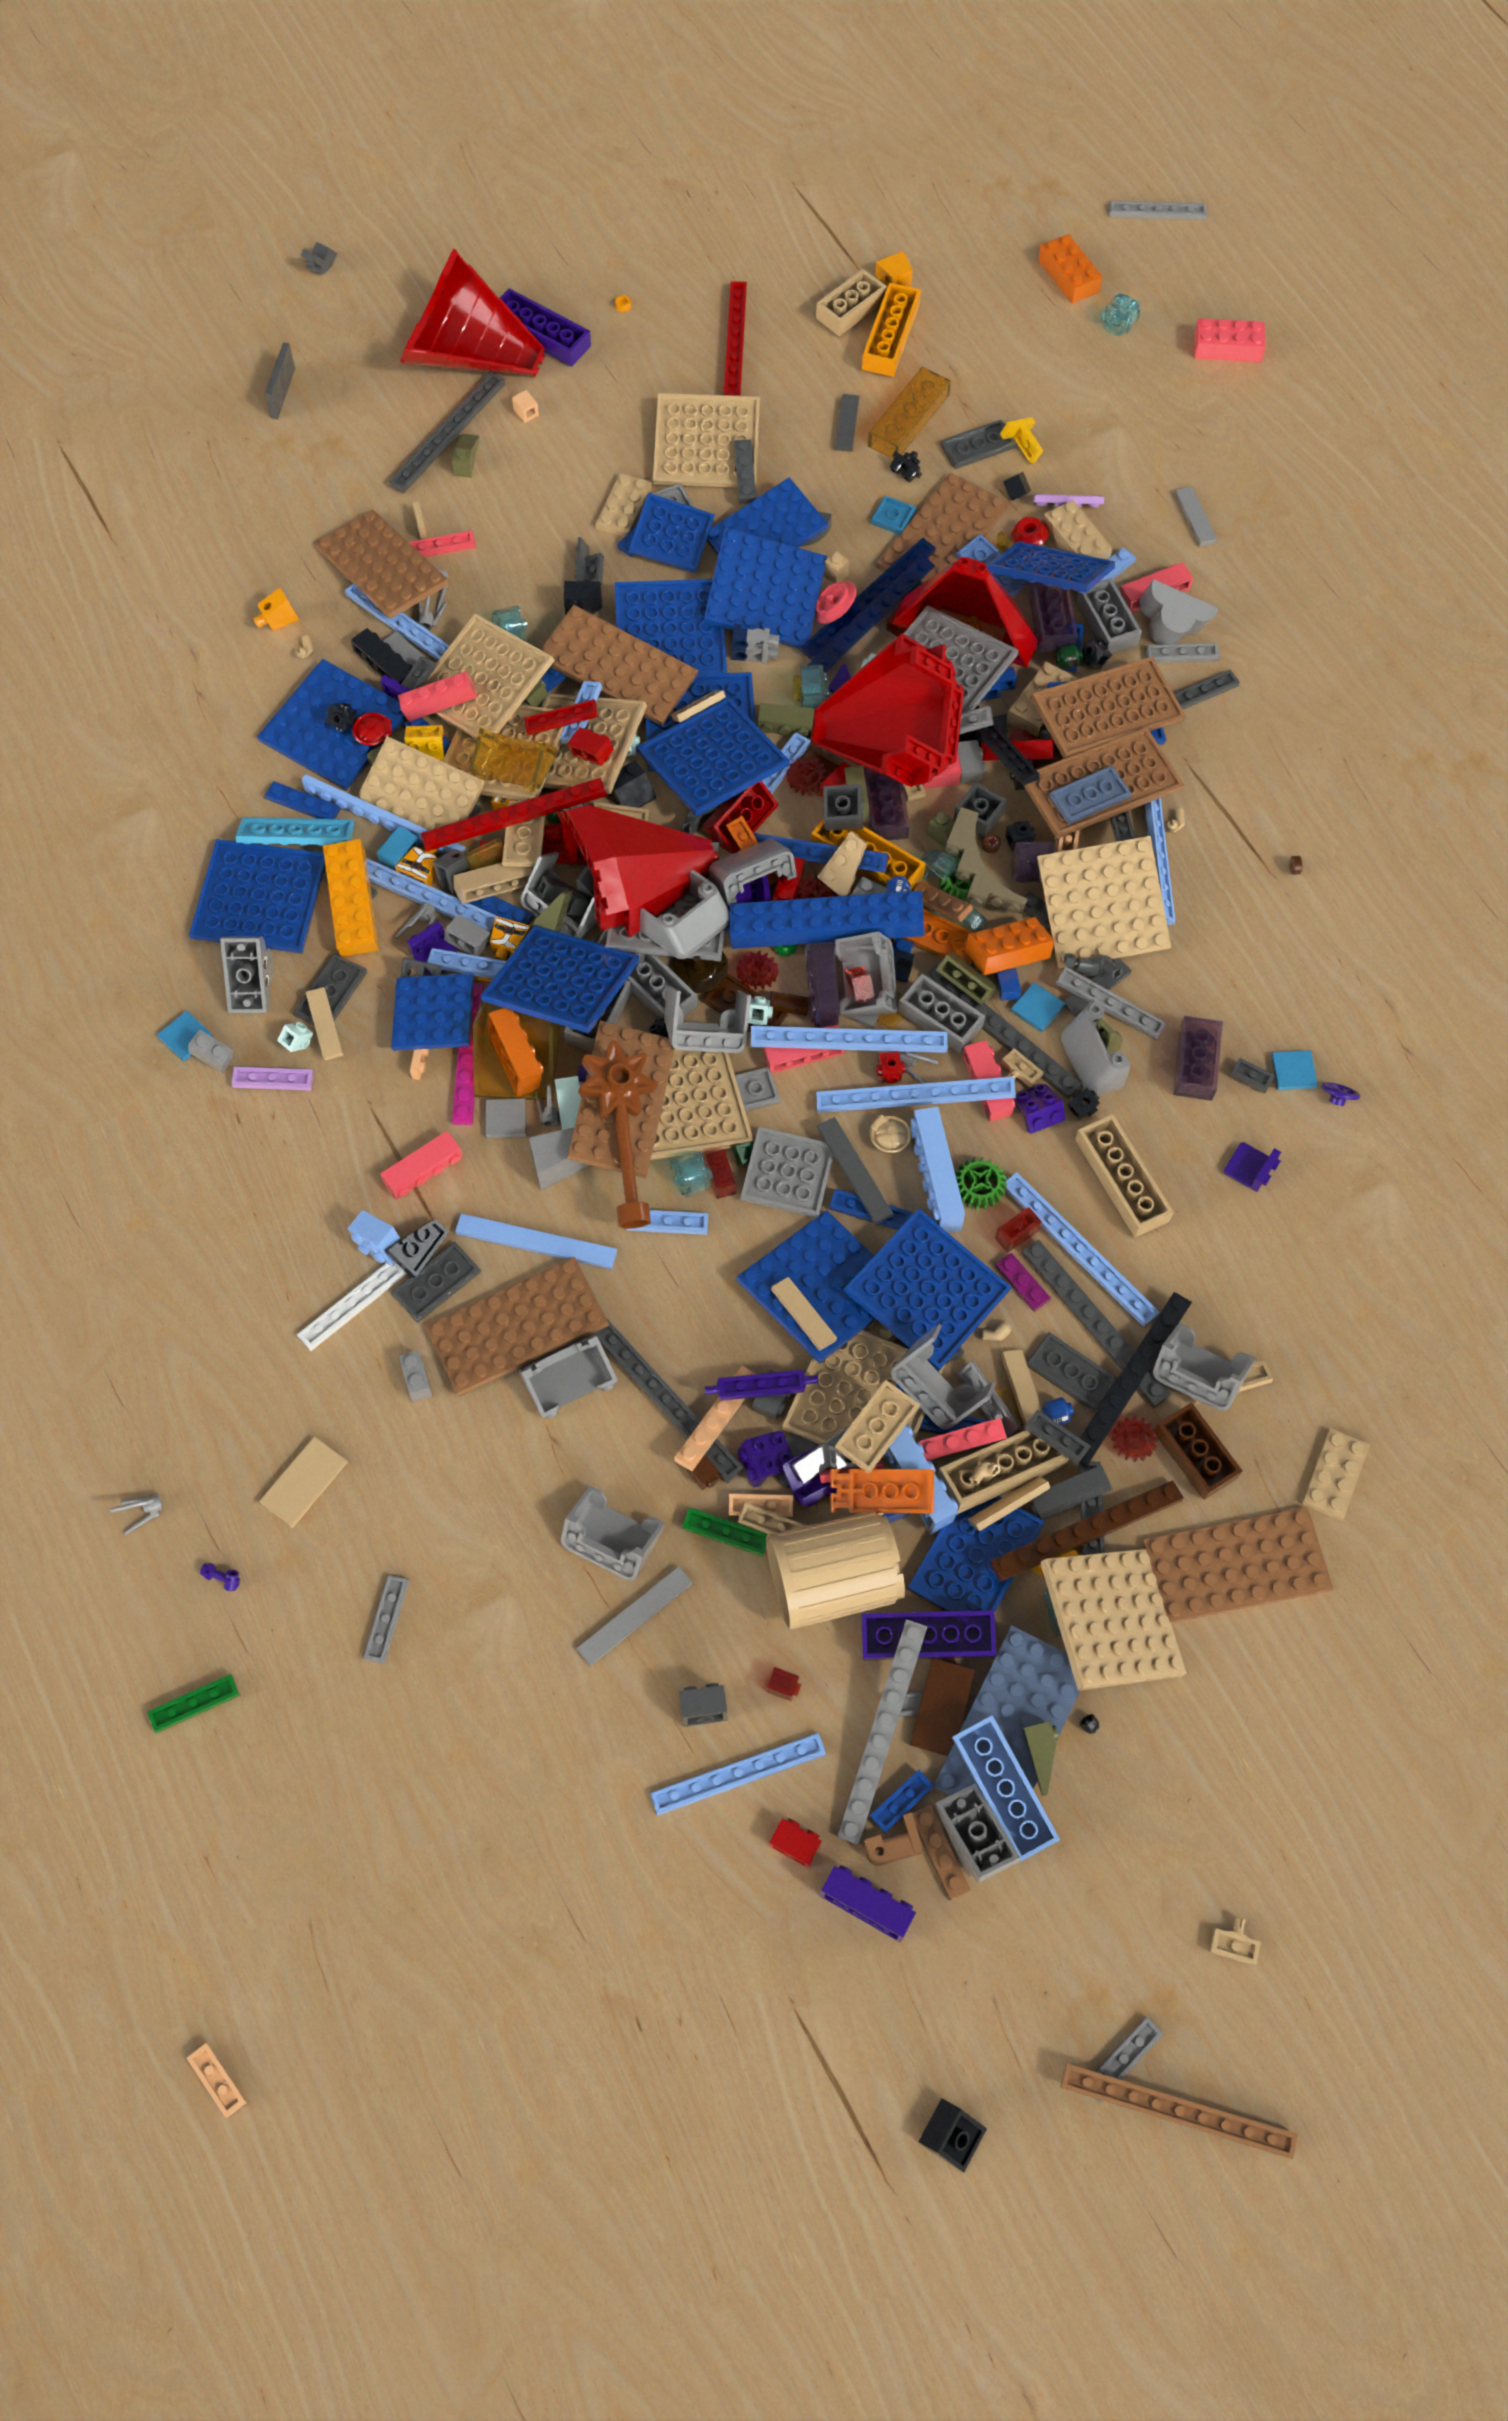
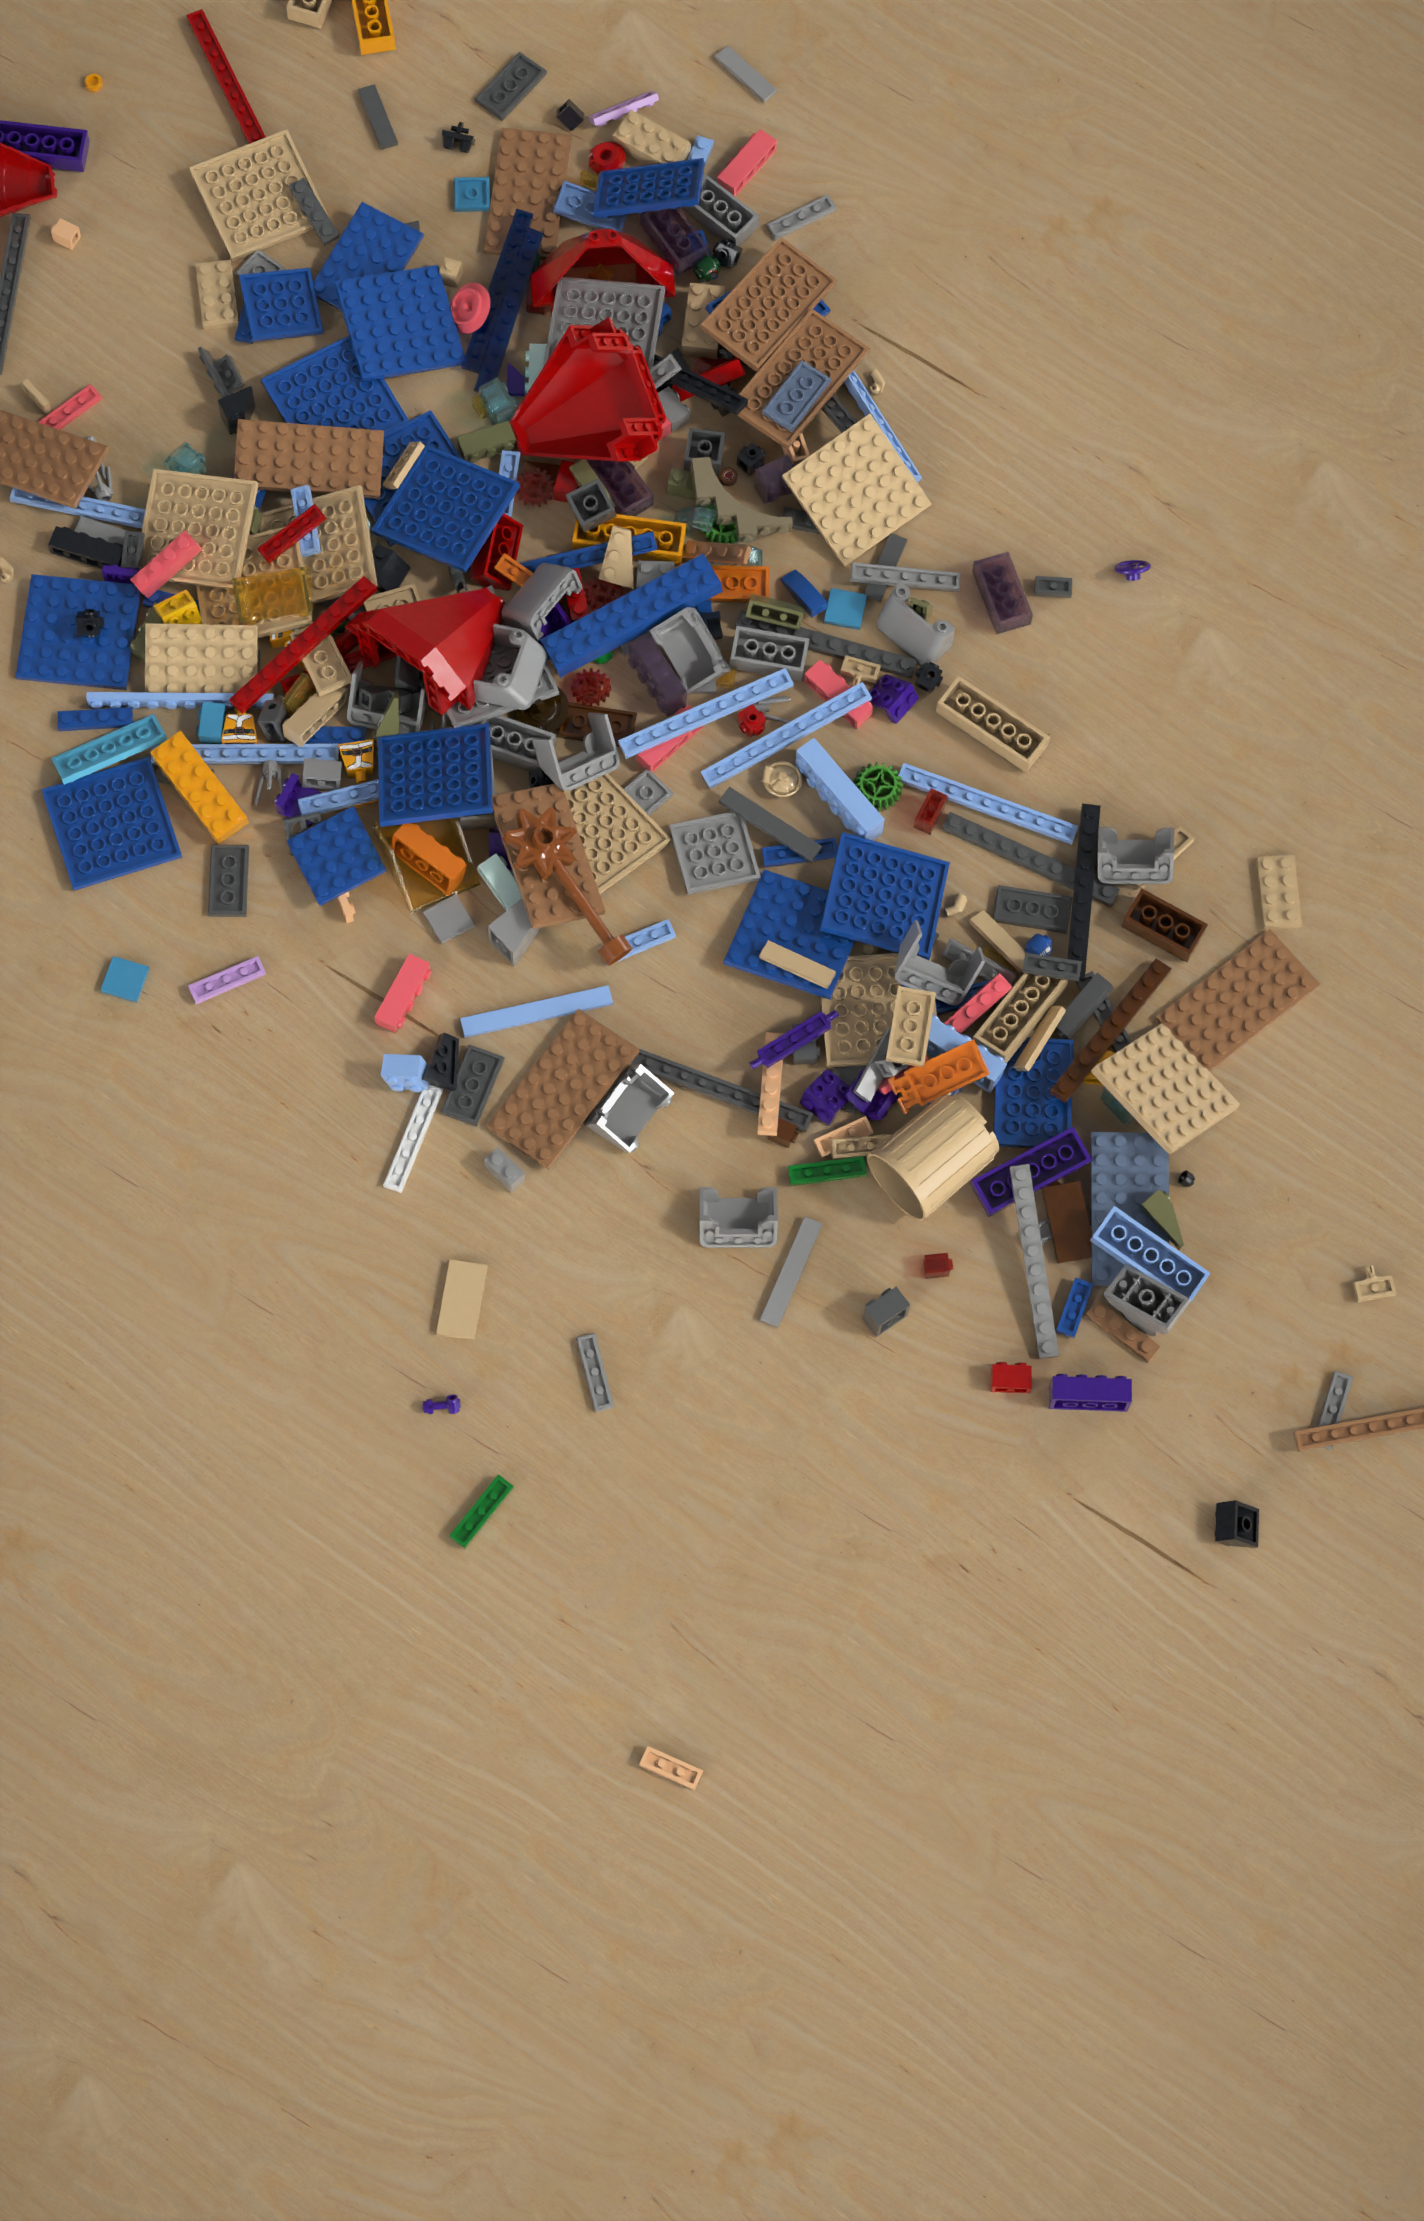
camera: 30 degrees left, 5 degrees up
(150, 1504) = (347, 1378): light grey plant -> none
(210, 1051) = (160, 982): light grey brick -> none
(247, 973) = (152, 900): light grey brick -> none
(295, 1036) = (226, 933): light aqua brick -> none
(324, 1023) = (243, 910): tan tile -> none
(372, 729) = (123, 622): red piece -> none
(464, 1086) = (394, 900): dark pink plate -> none
(465, 455) = (38, 308): olive slope -> none
(549, 1116) = (486, 898): light grey plant -> none
(590, 746) = (336, 549): red brick -> none
(691, 1174) = (636, 892): clear light blue brick -> none
(723, 1179) = (659, 880): clear red brick -> none
(737, 1774) = (938, 1350): light blue tile -> none
(743, 1153) = (668, 854): dark green plate -> none
(754, 644) = (419, 383): light grey hips -> none
(760, 1017) = (618, 723): light aqua brick -> none
(789, 1003) = (633, 704): reddish brown tile -> none
(859, 984) = (690, 660): clear red brick -> none
(895, 1847) = (1088, 1343): medium nougat piece -> none
(898, 884) = (675, 557): blue head -> none
(909, 412) = (432, 83): clear yellow brick -> none
(984, 1470) = (1010, 1021): tan arm -> none
(1009, 946) = (796, 566): orange brick -> none
(1021, 432) = (552, 63): yellow bracket -> none
(1022, 1282) = (955, 853): magenta plate -> none
(1093, 966) = (874, 550): dark grey arm -> none
(1132, 1429) = (1101, 936): clear red gear -> none
(1173, 613) = (778, 185): light grey brick -> none
(1206, 689) = (840, 243): dark grey tile -> none
(1252, 1166) = (1091, 666): dark purple bracket -> none
(1294, 1070) = (1084, 565): dark azure tile -> none
(1295, 865) = (998, 378): reddish brown tile -> none

